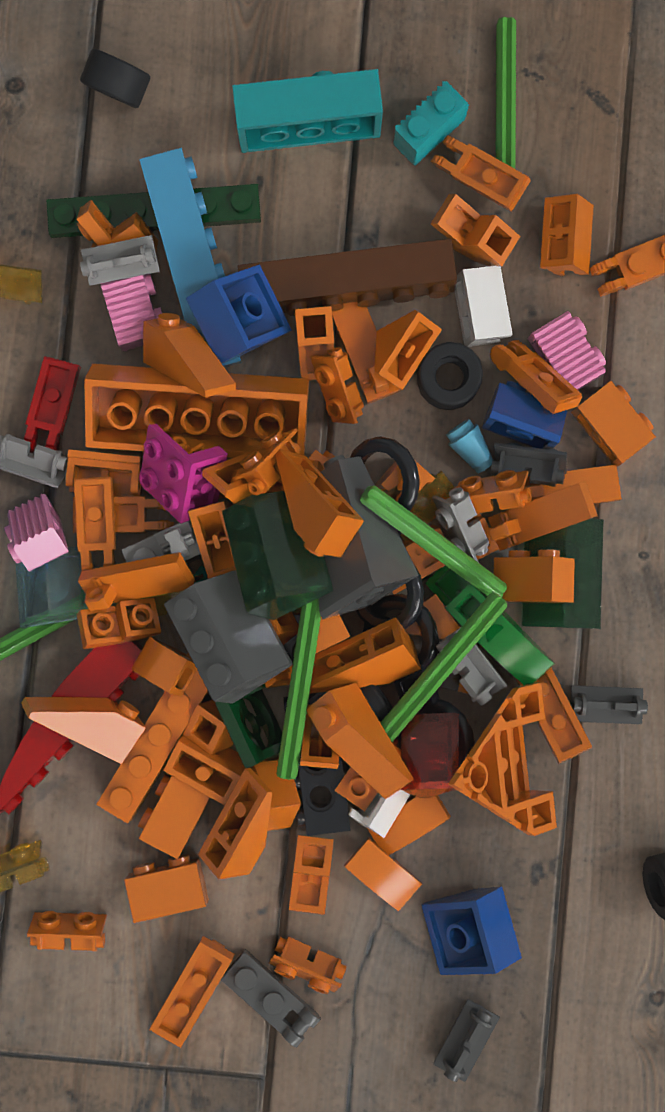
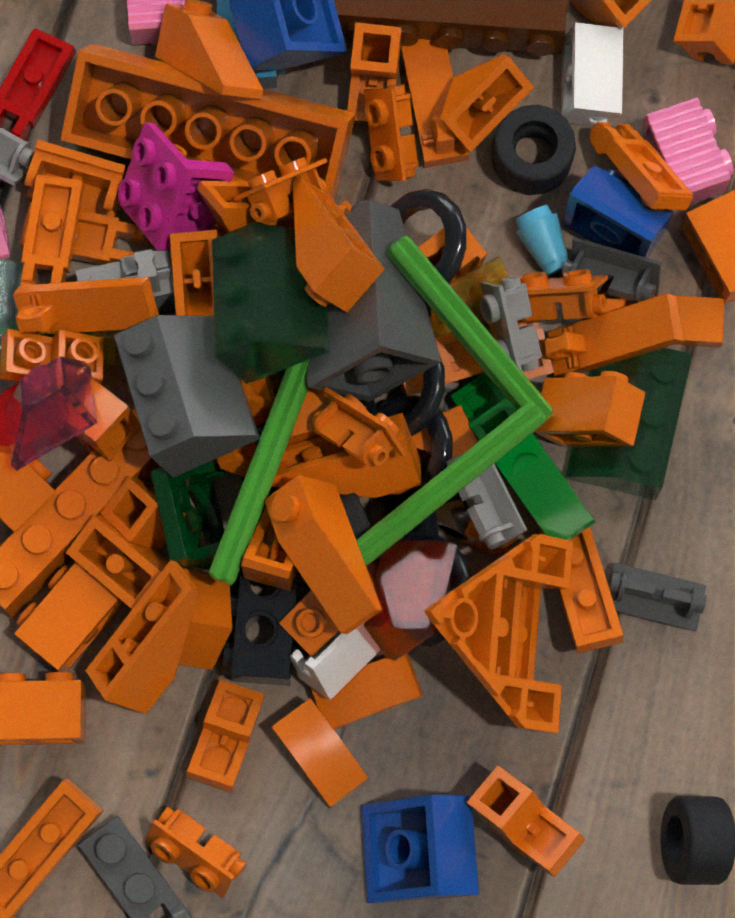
camera: 15 degrees right, 10 degrees down
(129, 675) = (49, 409): none -> clear pink slope
(379, 650) = (364, 435): none -> orange hinge
(546, 898) = (524, 821): none -> orange brick

